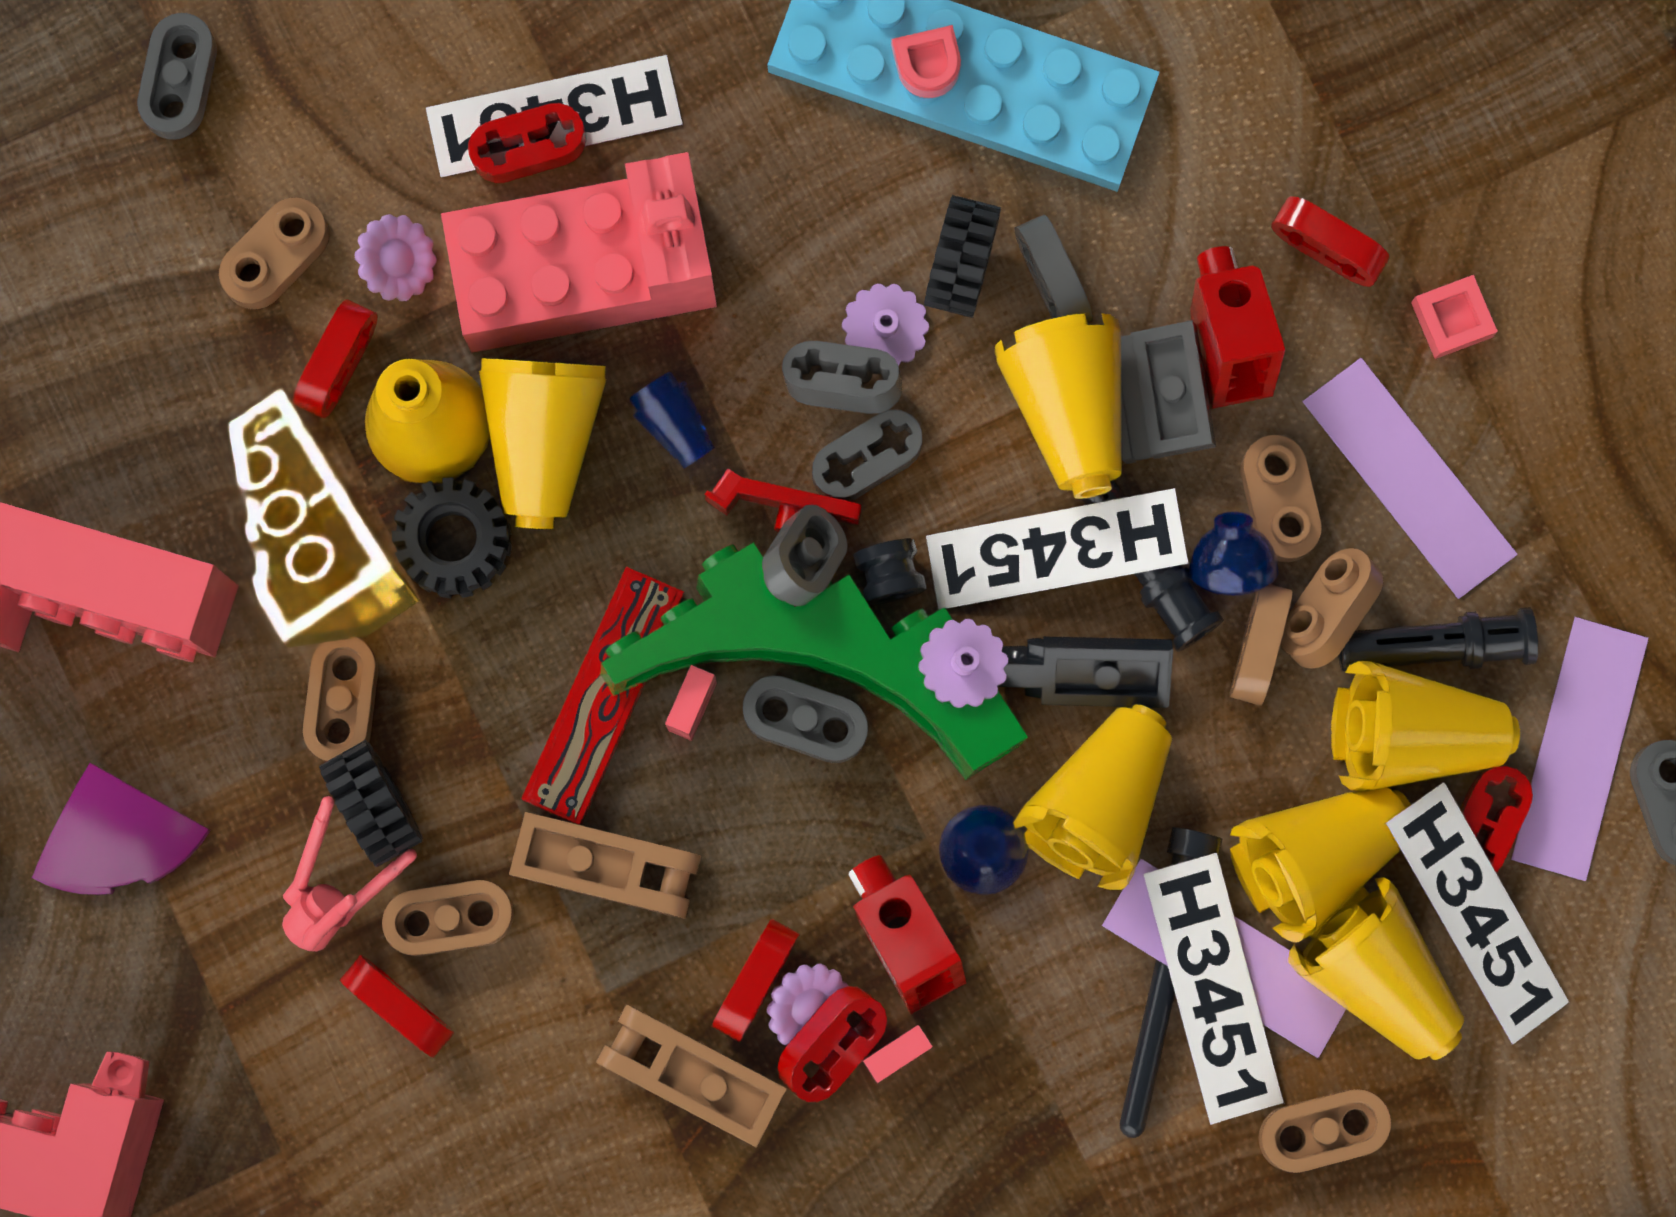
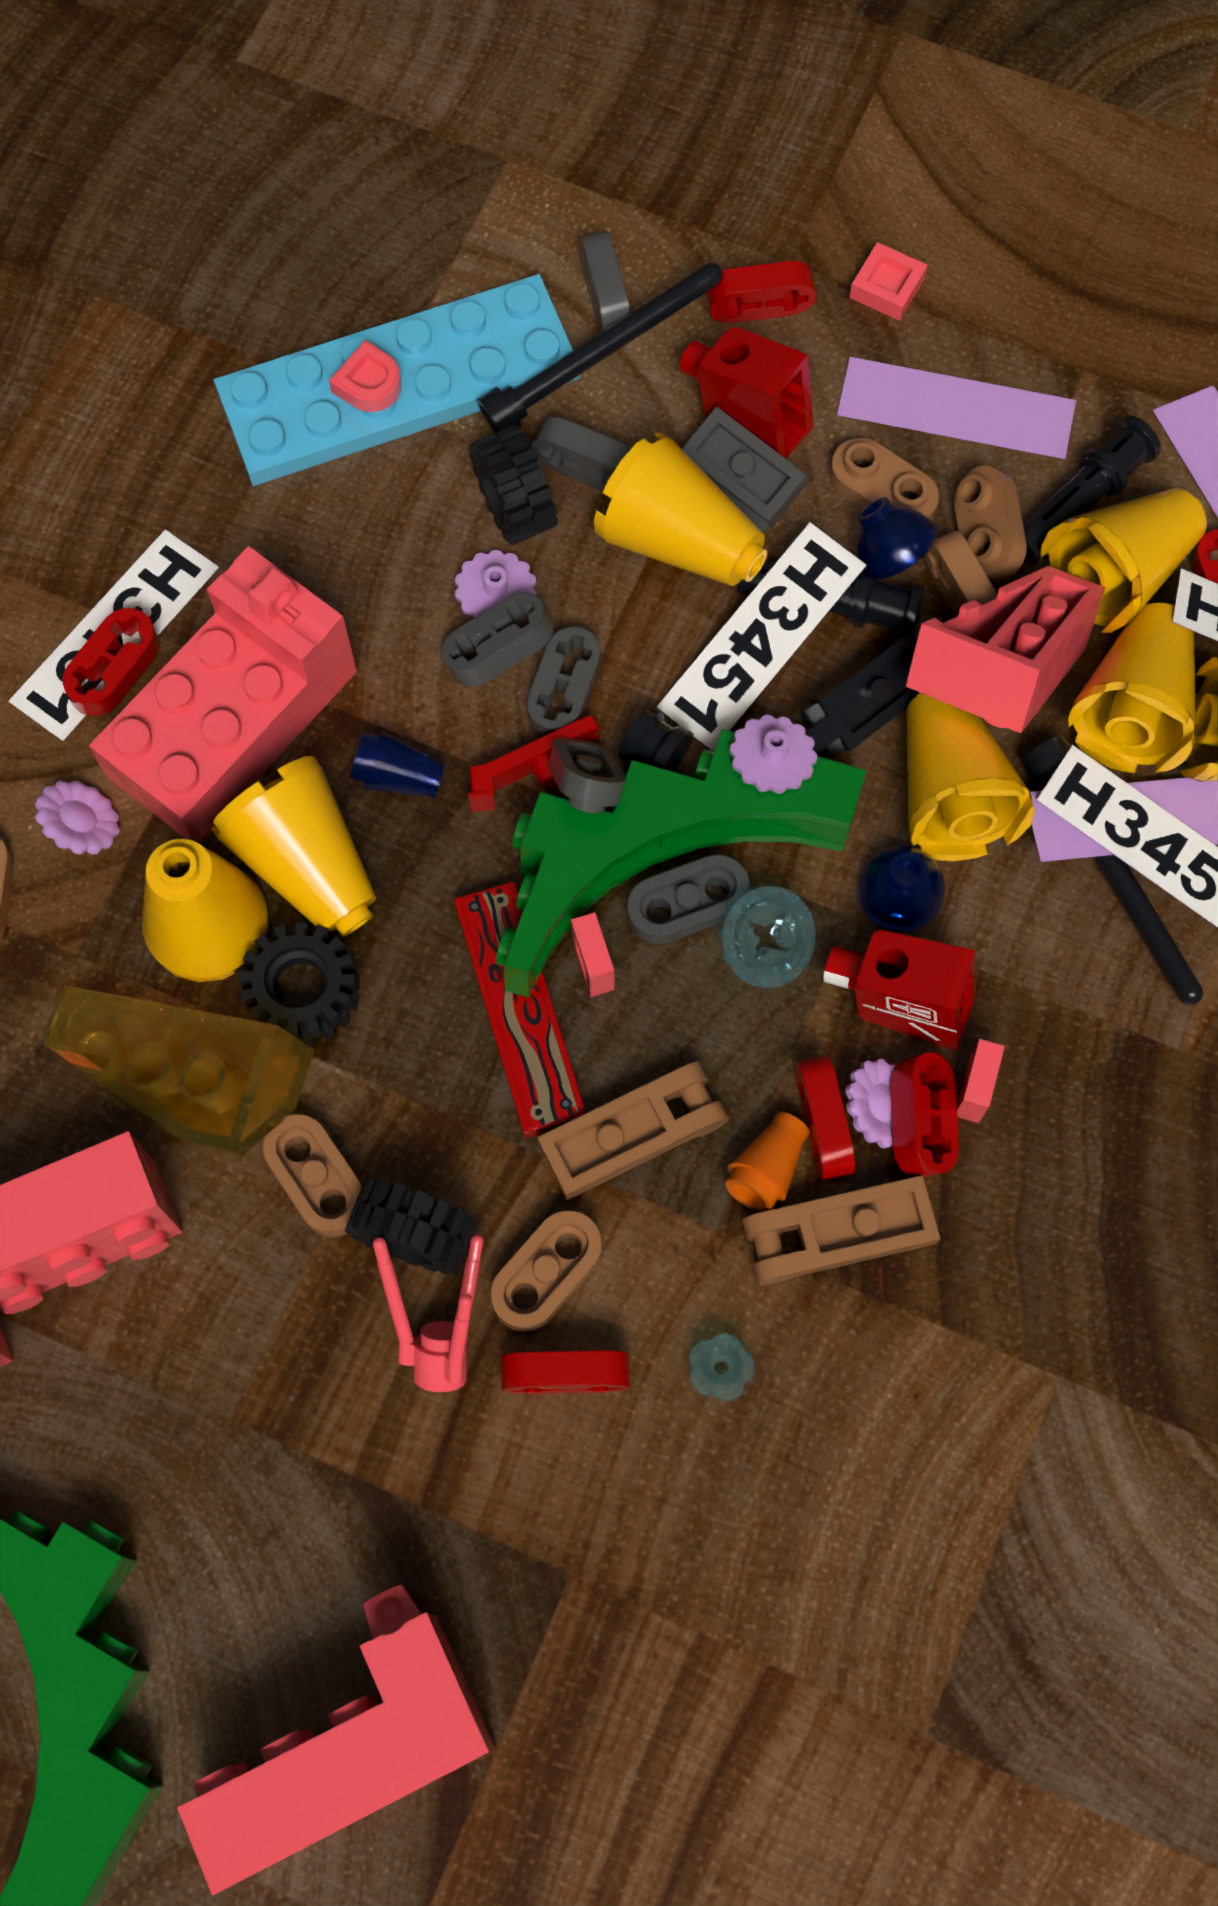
camera: 40 degrees left, 10 degrees down
(114, 838) = (218, 1436): magenta brick -> none
(335, 358) = (91, 926): red beam -> none
(496, 1099) = (721, 1349): none -> clear light blue plate
(682, 978) = (767, 1165): none -> orange cone
(819, 824) = (792, 929): none -> clear light blue gear
(1026, 175) = (508, 406): none -> black piece
(1205, 125) = (603, 279): none -> dark grey beam
(1229, 738) = (1010, 652): none -> coral wedge

